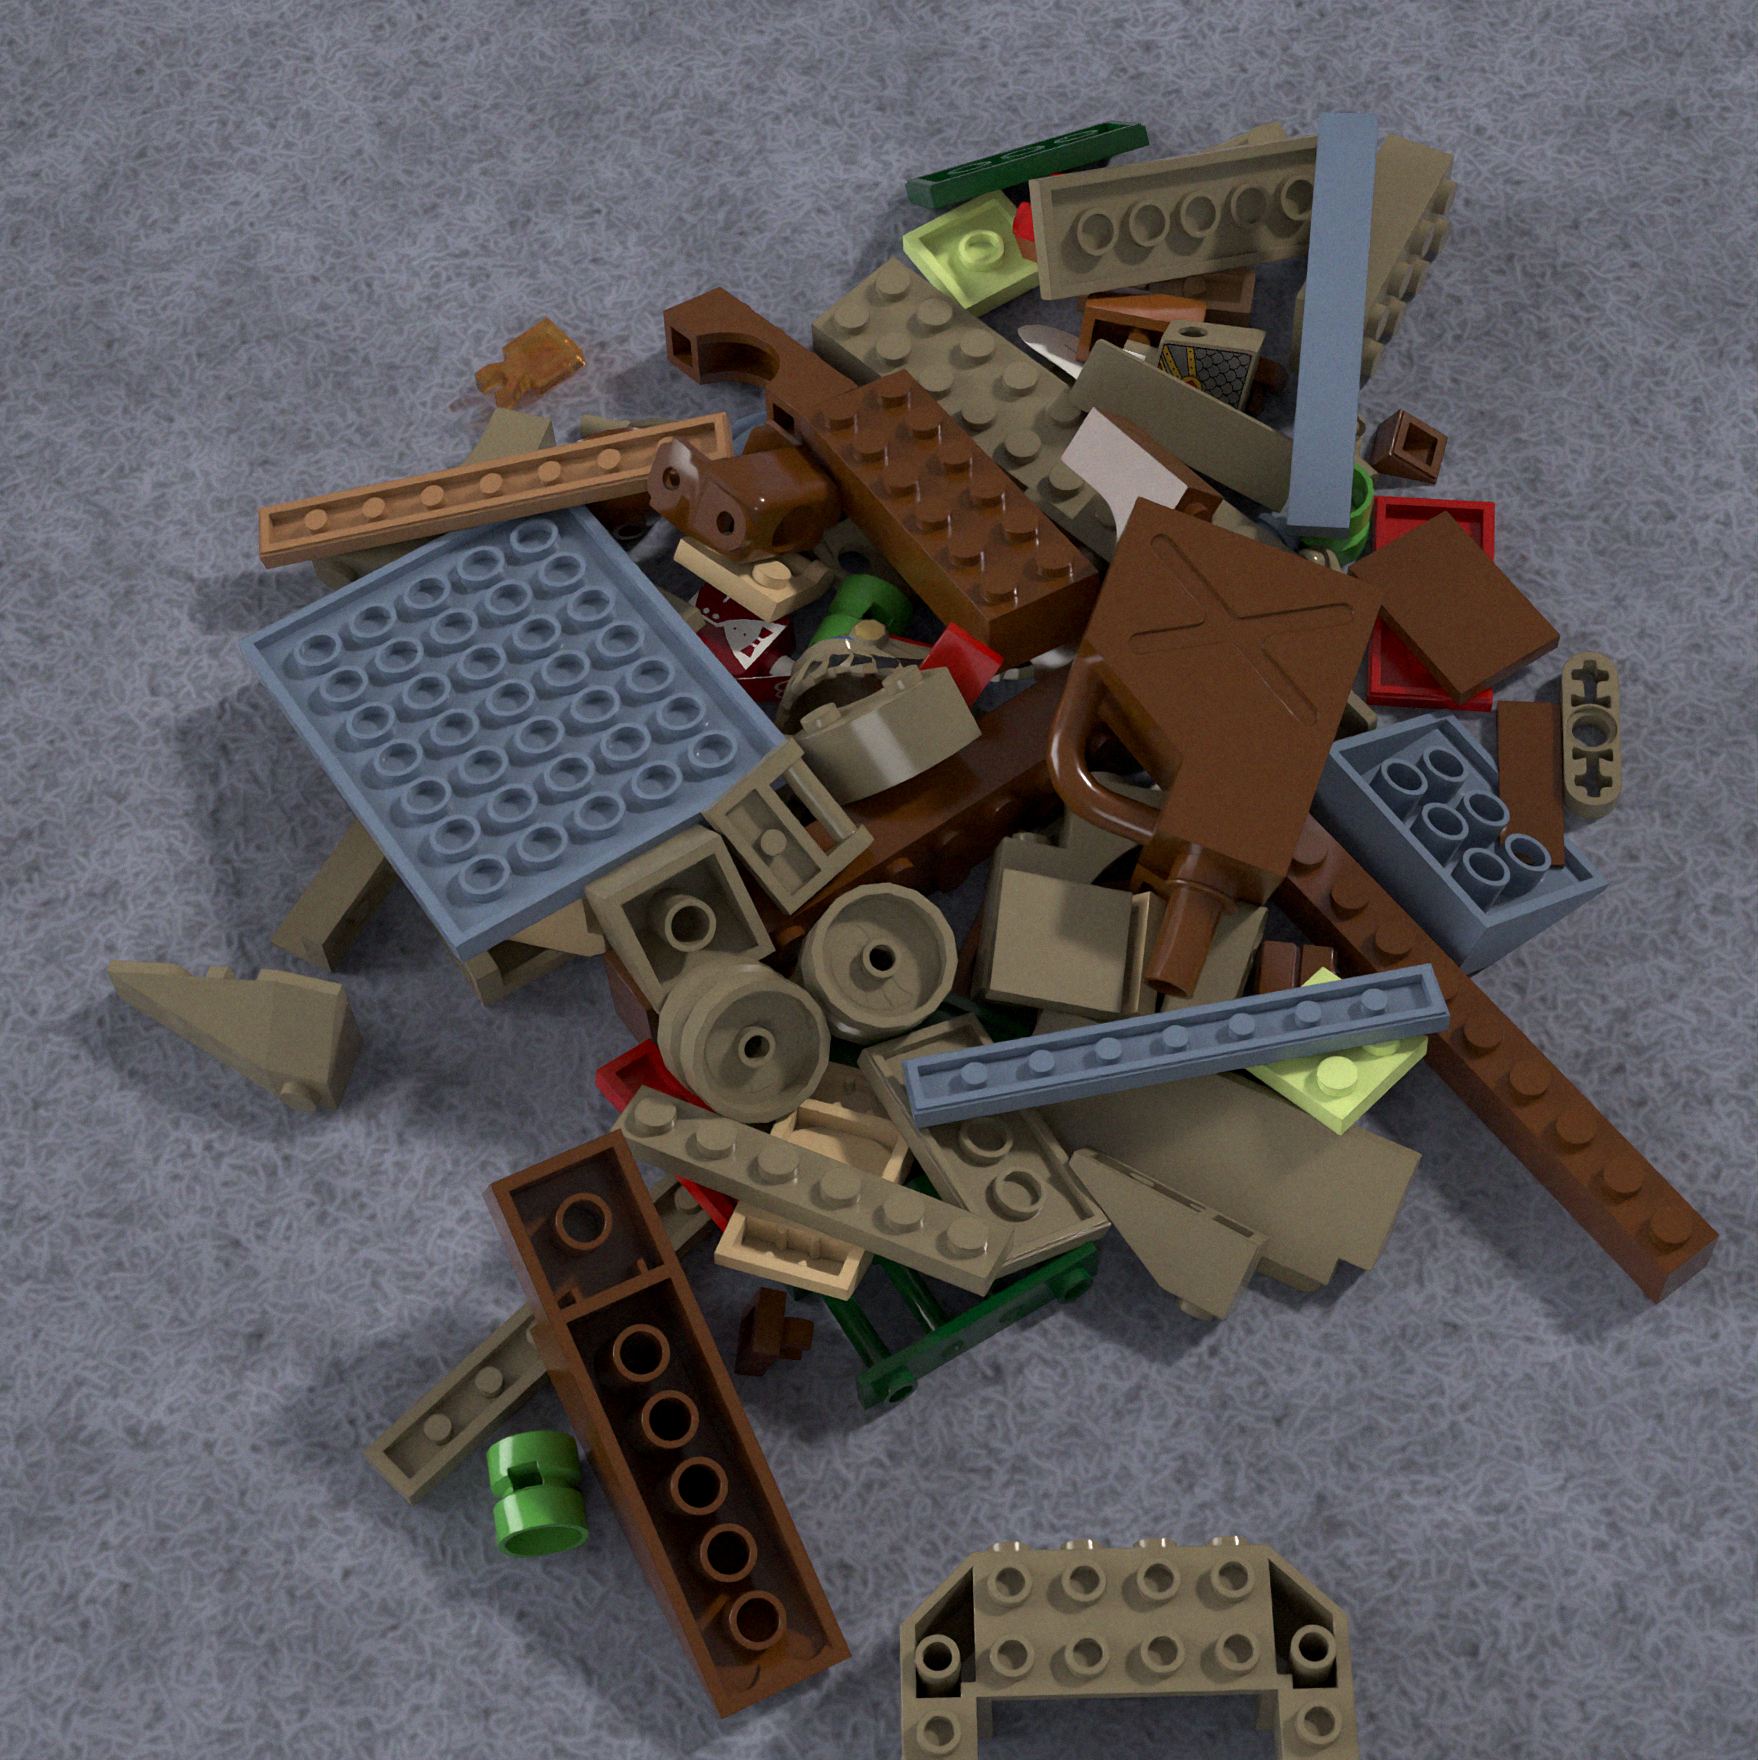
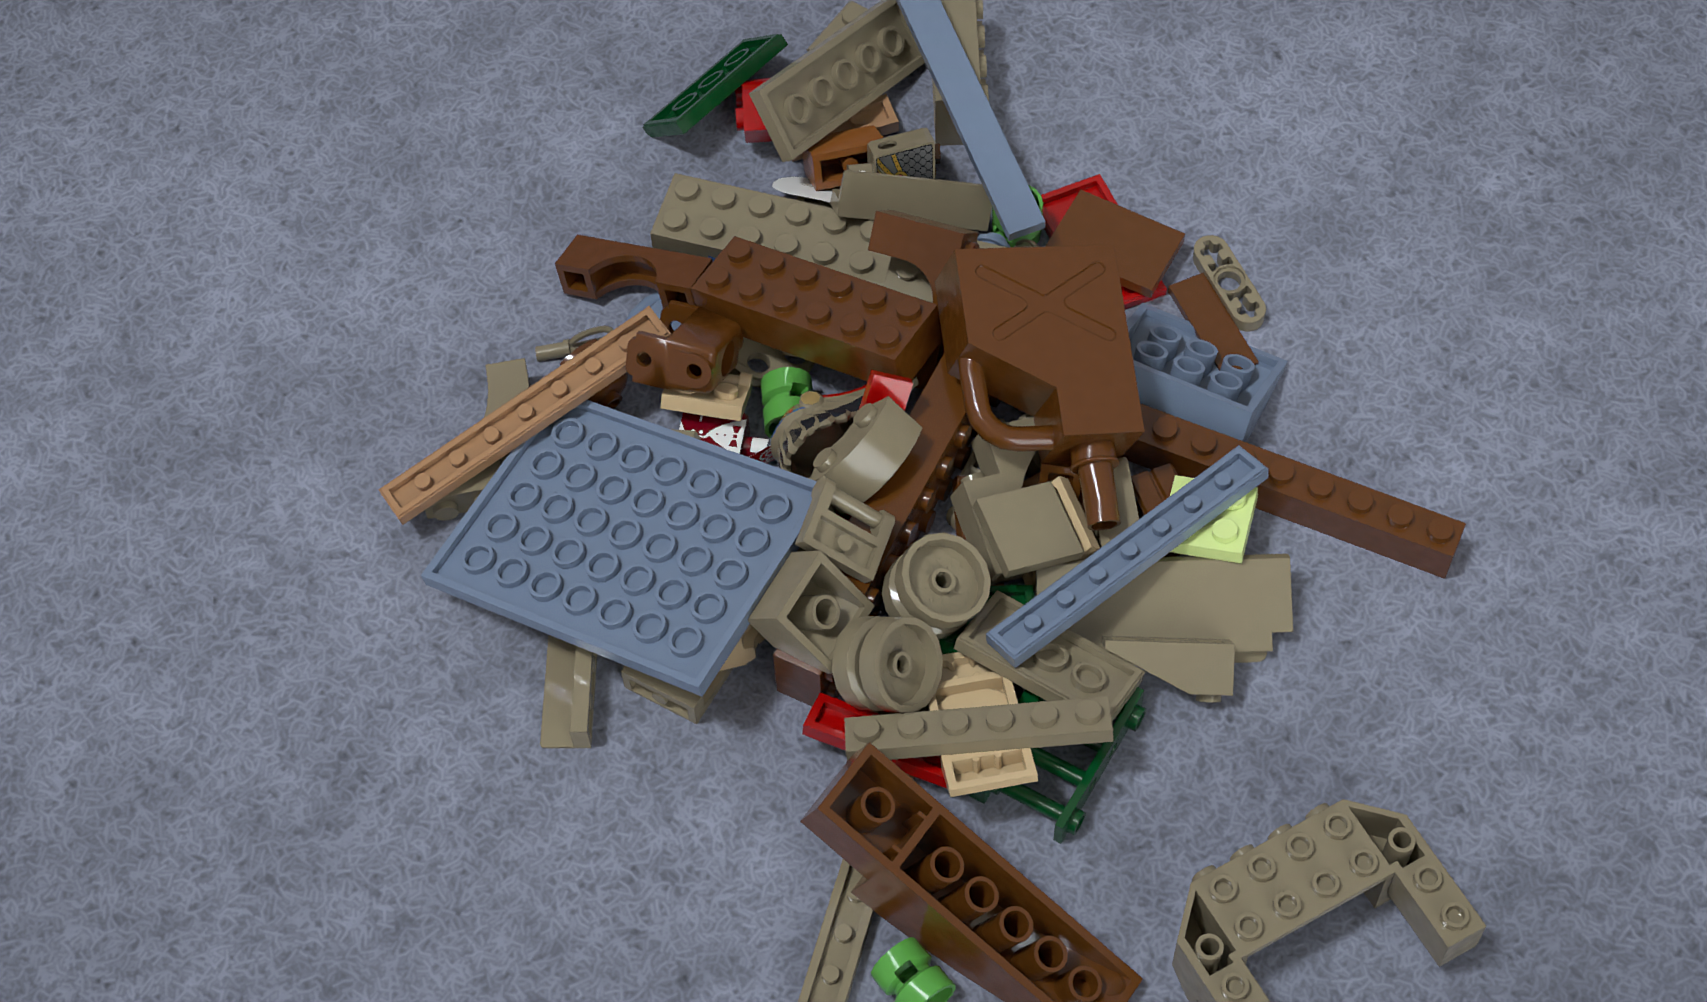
camera: 30 degrees left, 0 degrees up
(276, 1030) = (590, 798): dark tan wedge -> none
(533, 360) = (482, 327): clear orange plate -> none
(768, 1334) = (987, 823): reddish brown tile -> none
(974, 254) = (715, 151): yellowish green plate -> none
(1408, 448) = (1035, 162): reddish brown slope -> none

